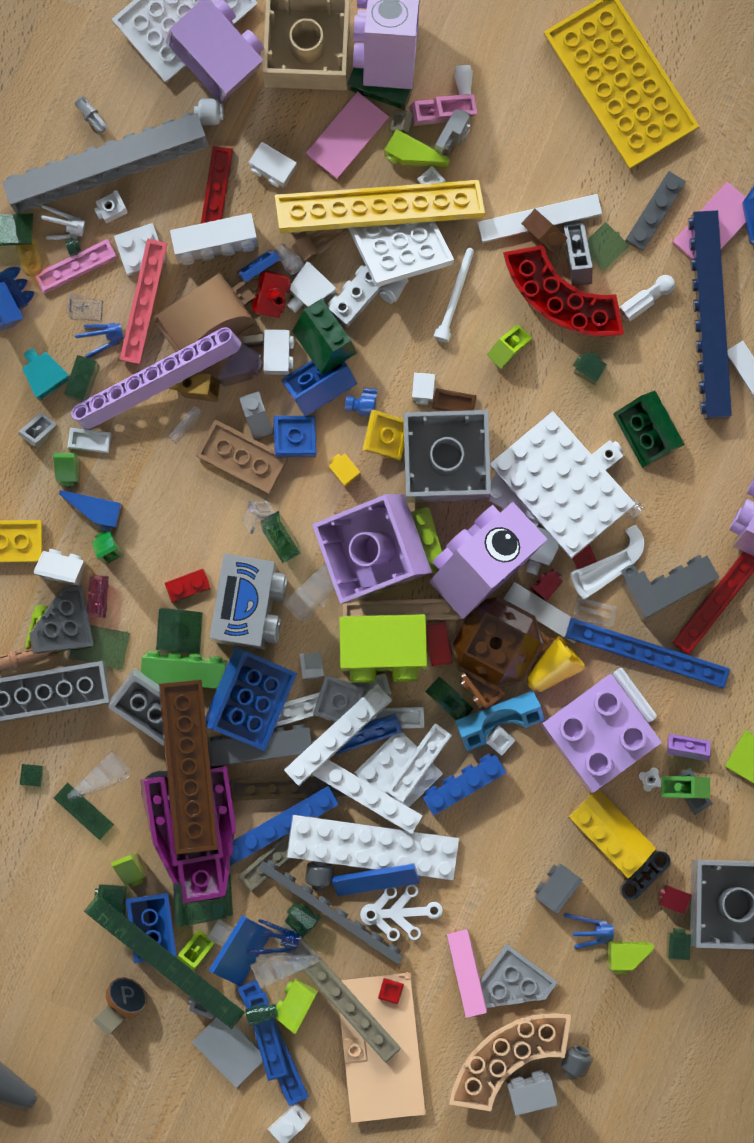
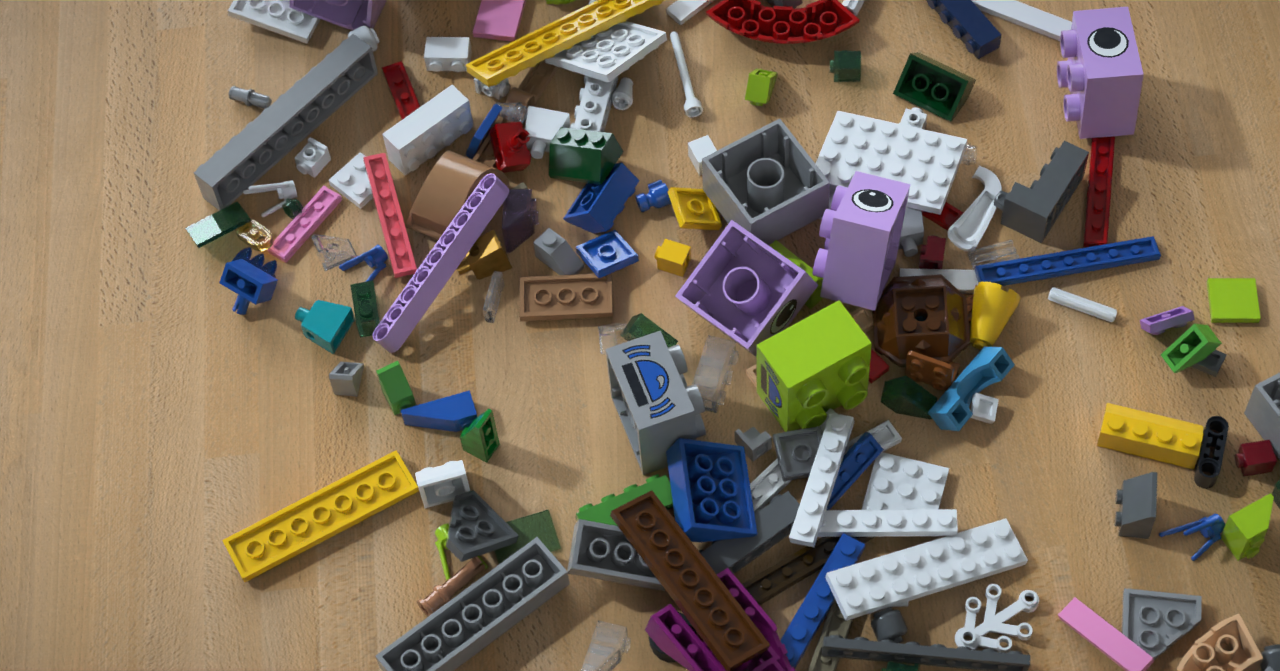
camera: 30 degrees left, 25 degrees down
(89, 440) = (409, 358): white tile -> none
(97, 596) = (495, 490): clear pink plate -> none
(179, 631) = (596, 476): clear green slope -> none
(187, 585) = (581, 436): red plate -> none
(277, 352) = (550, 199): white brick -> none
(376, 879) = (950, 597): blue tile -> none
(418, 763) = (919, 466): white tile -> none
(463, 785) = (977, 464): blue brick -> none
(600, 733) = (1075, 344): lavender brick -> none
(644, 776) = (1152, 373): white plate -> none

